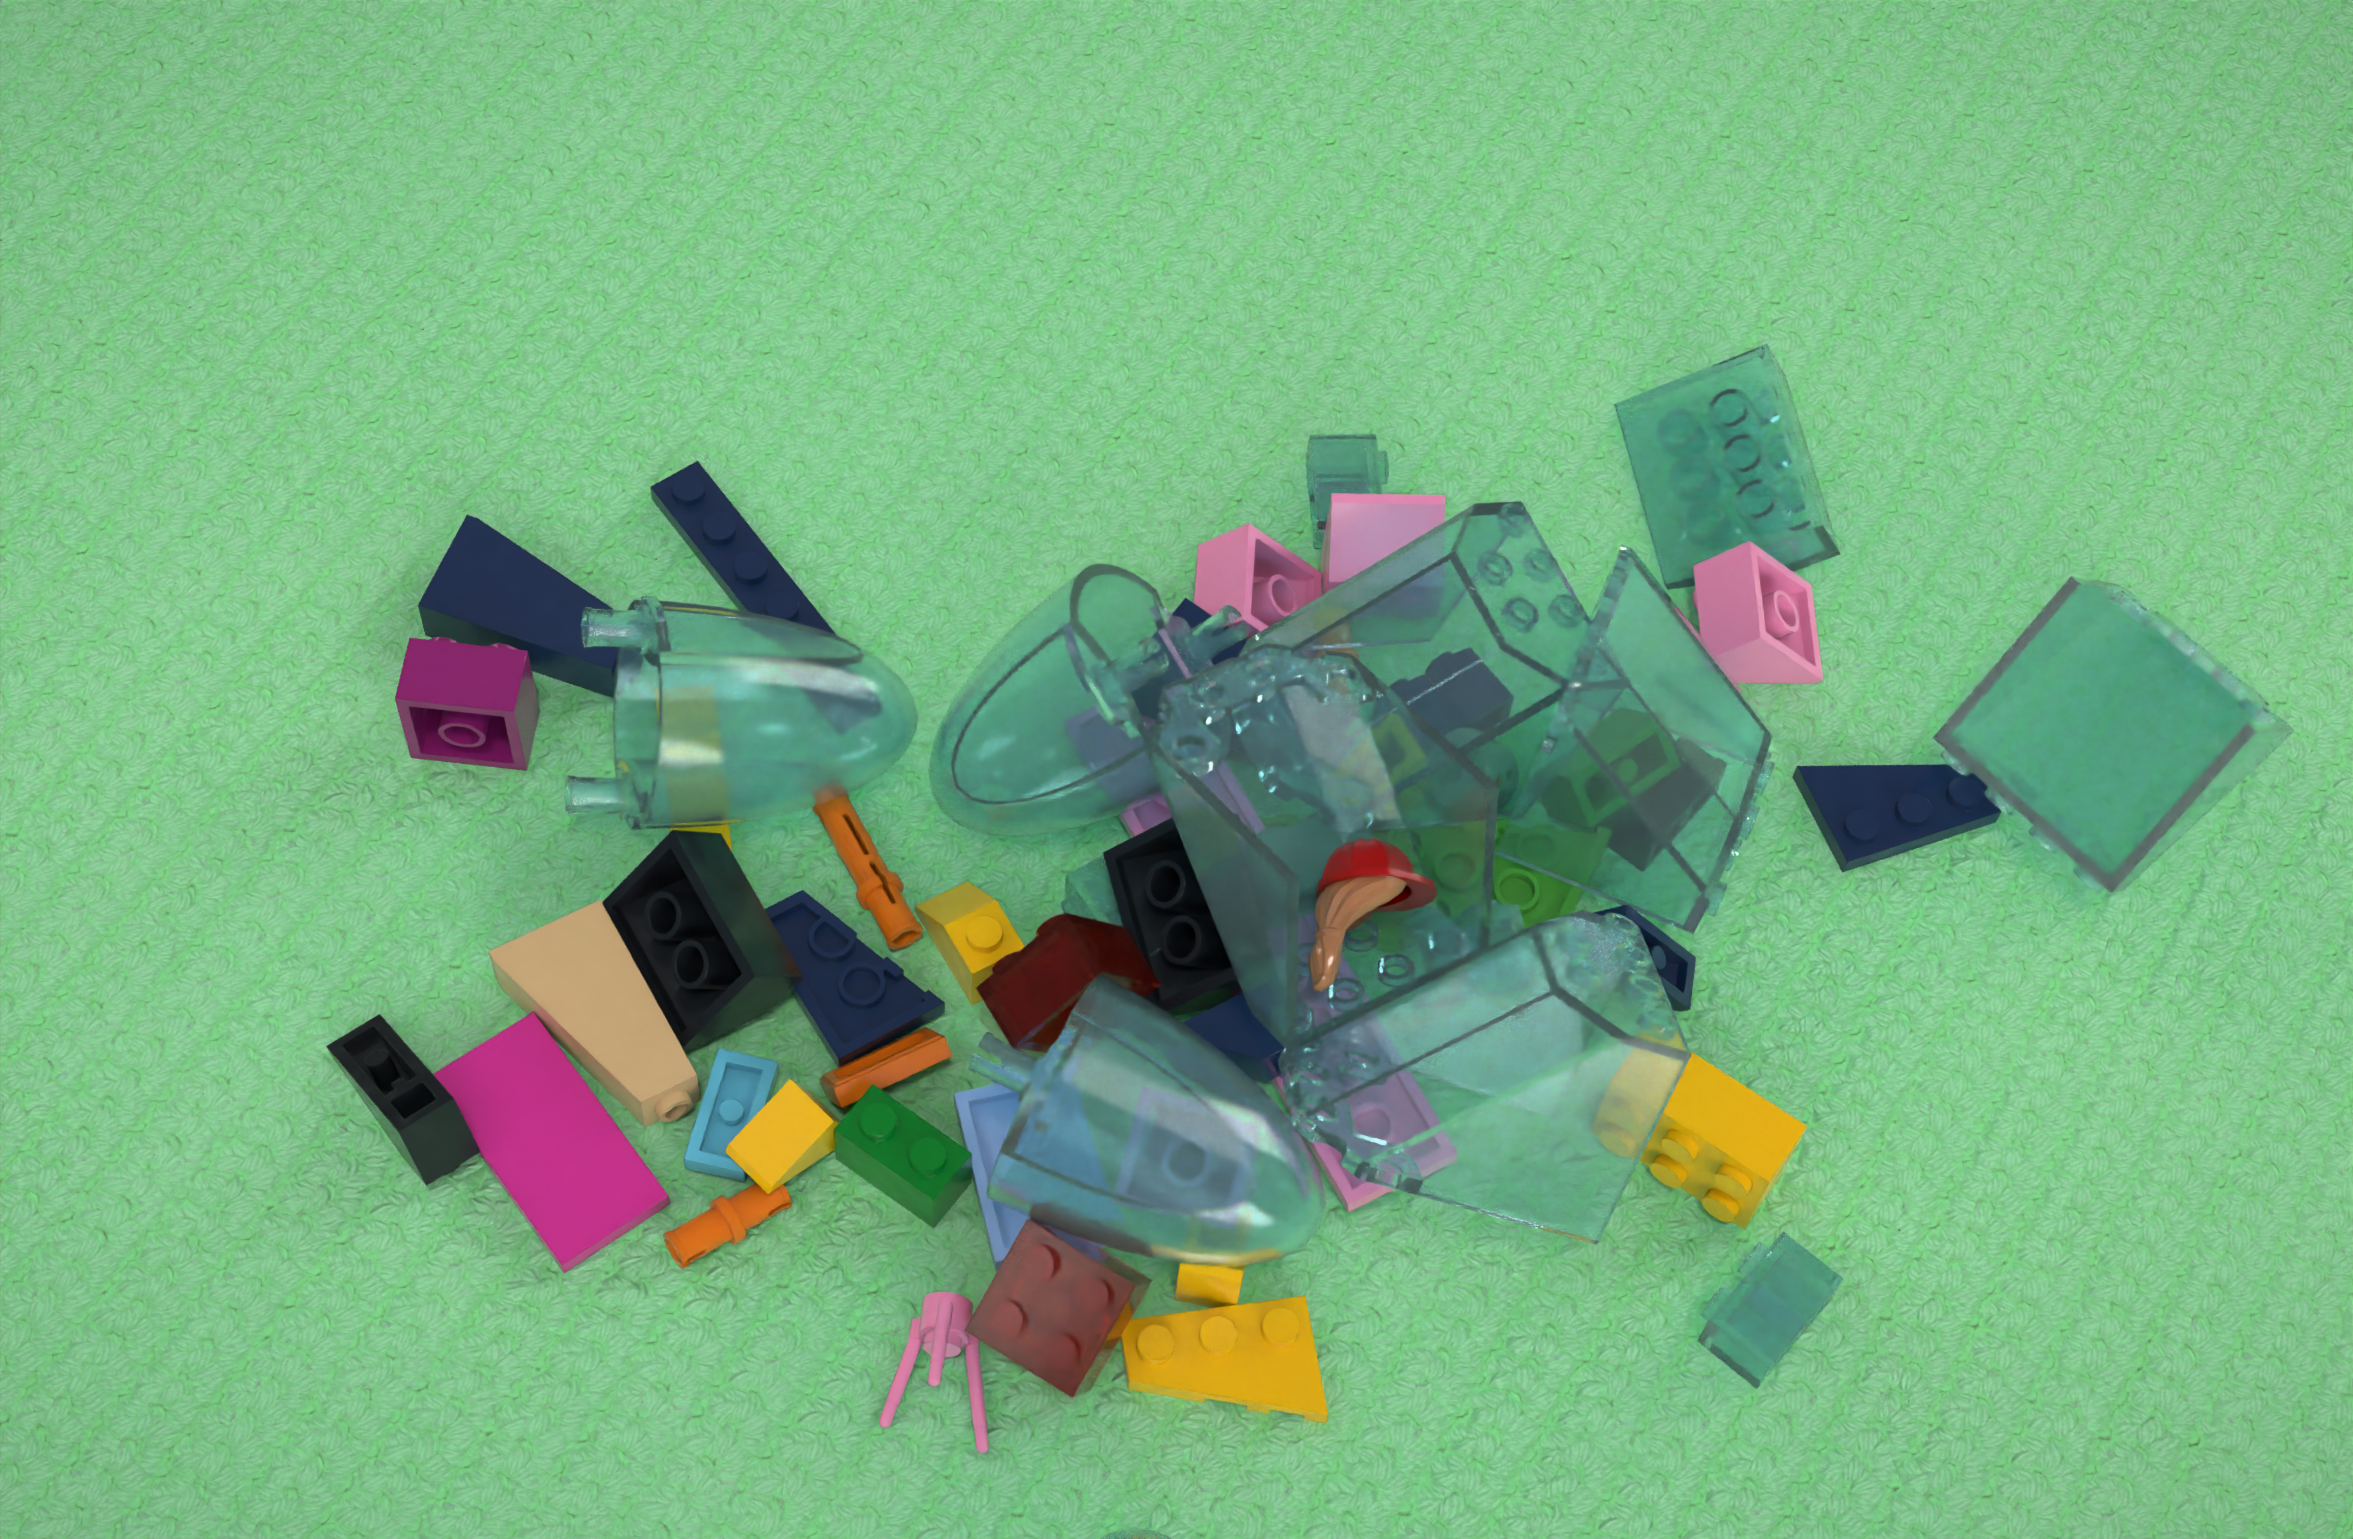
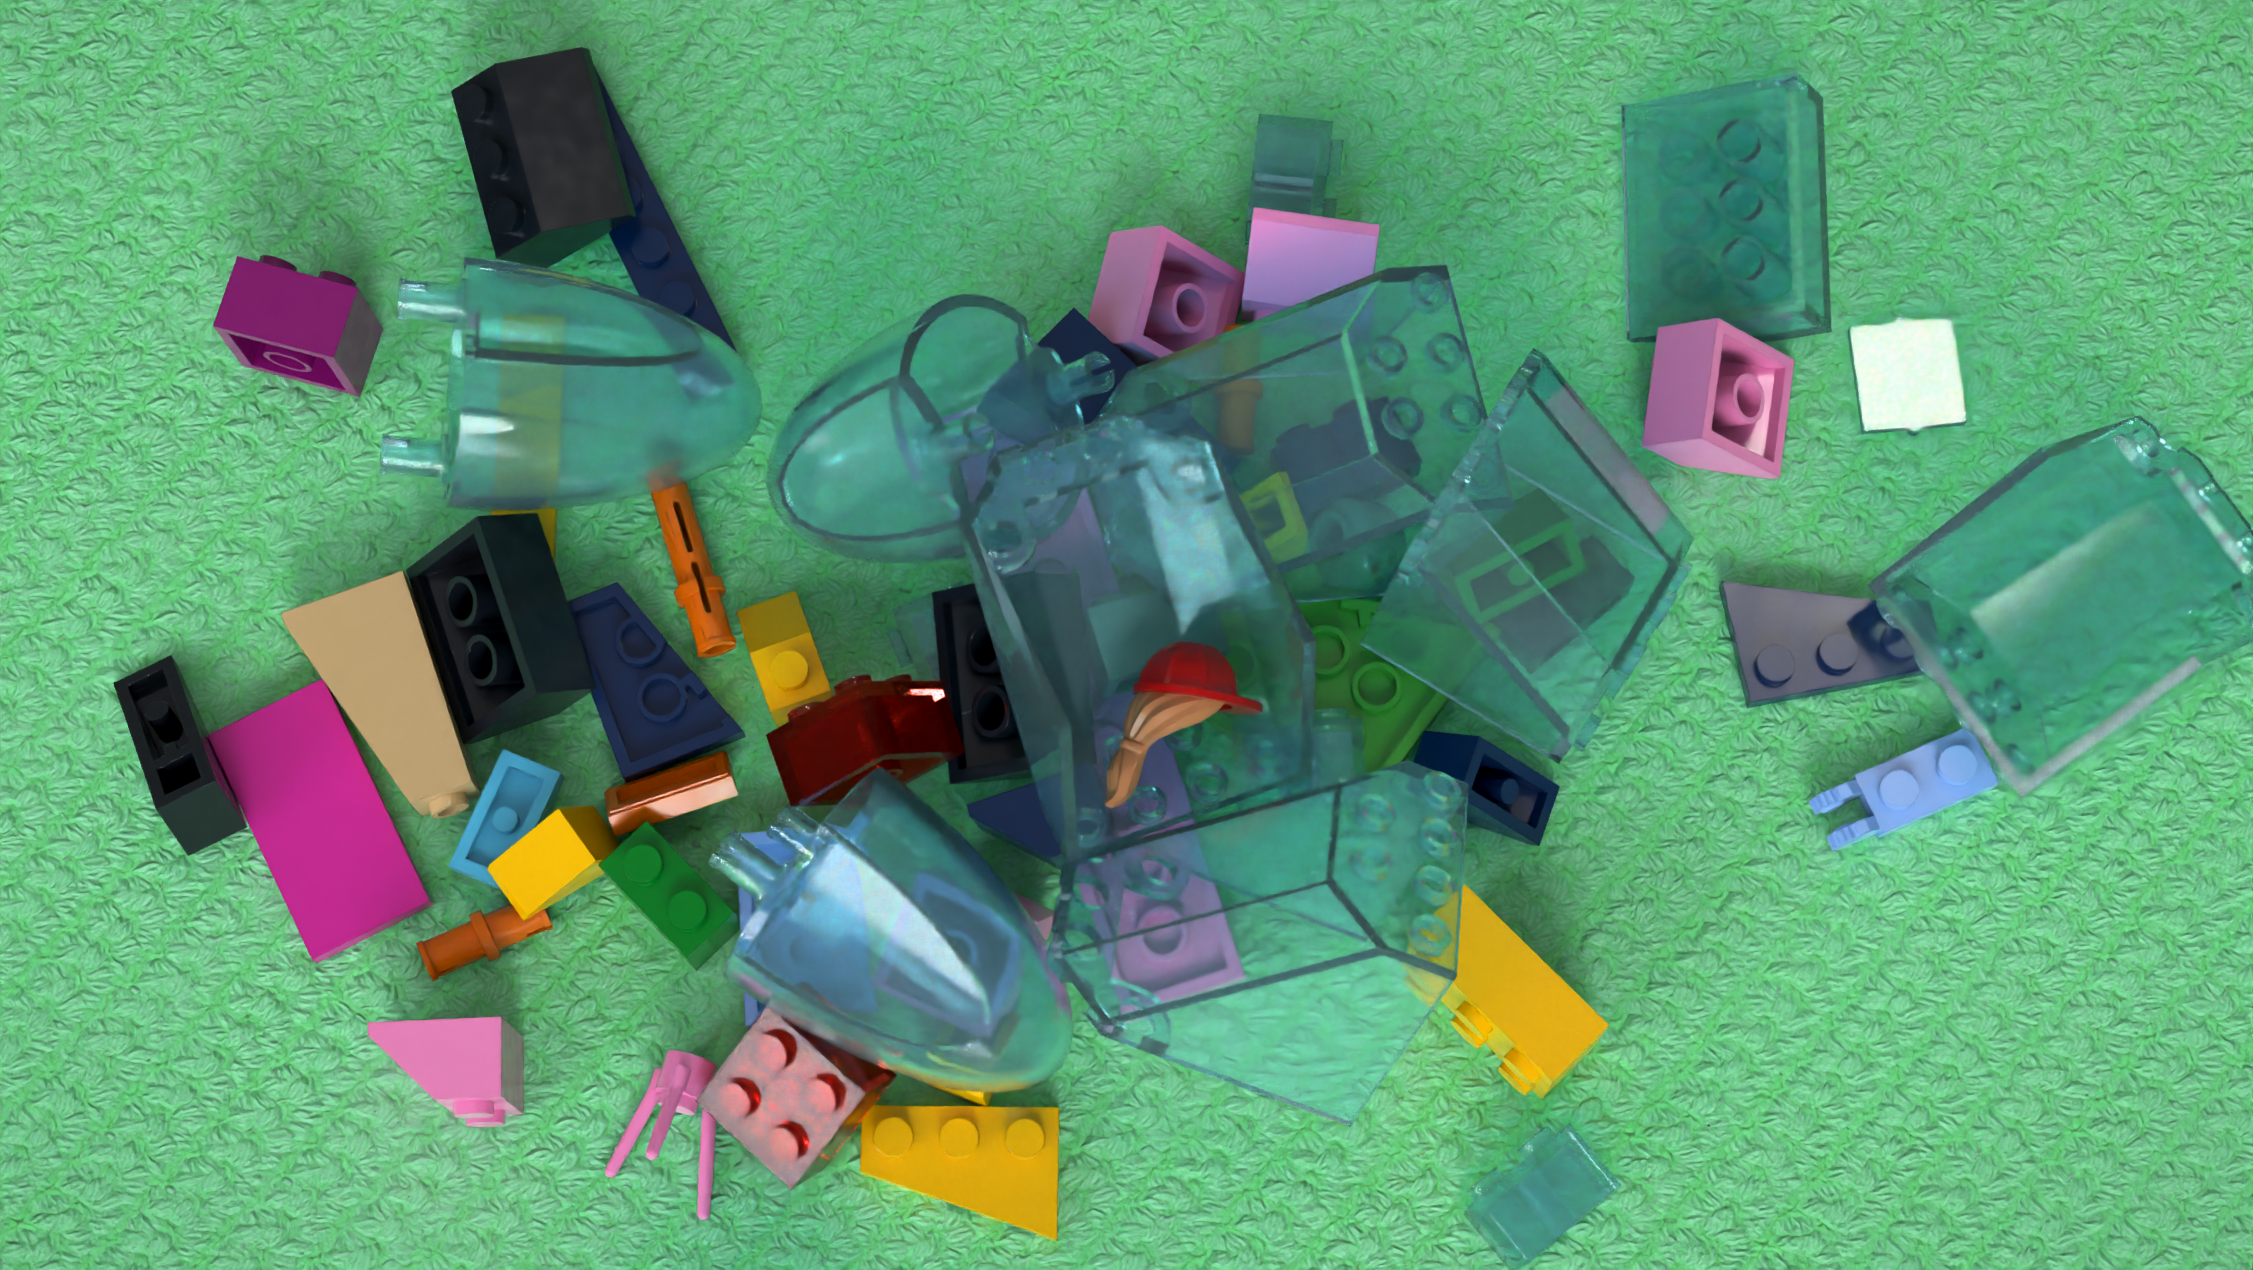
camera: 20 degrees right, 15 degrees up
(505, 595) = (365, 208): dark blue slope -> none
(674, 529) = (543, 156): none -> black slope
(722, 1330) = (461, 1063): none -> bright pink slope
(1909, 587) = (1906, 376): none -> clear light blue piece
(2002, 916) = (1910, 787): none -> light blue hinge

